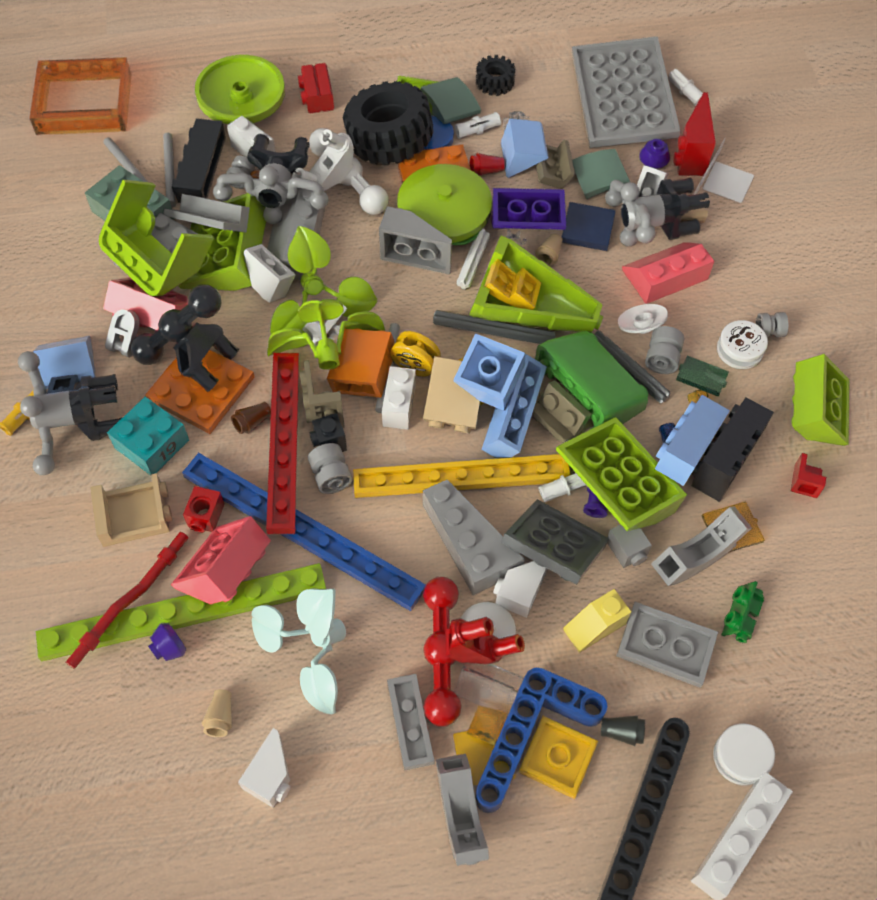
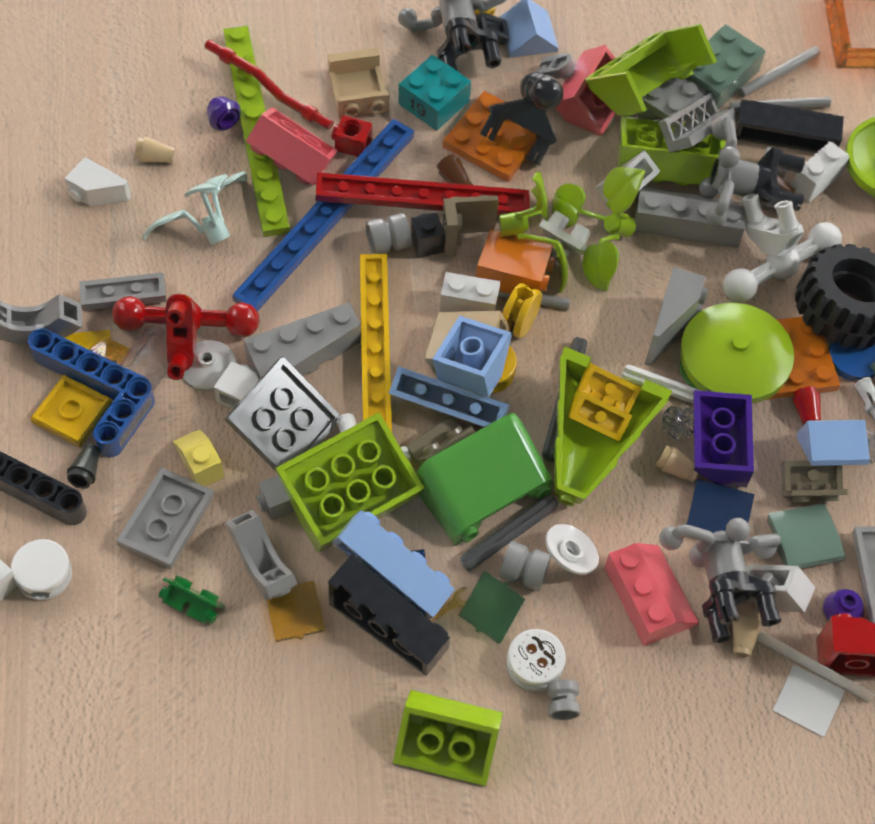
camera: 90 degrees right, 0 degrees up
(807, 479) = (348, 699): red panel -> none

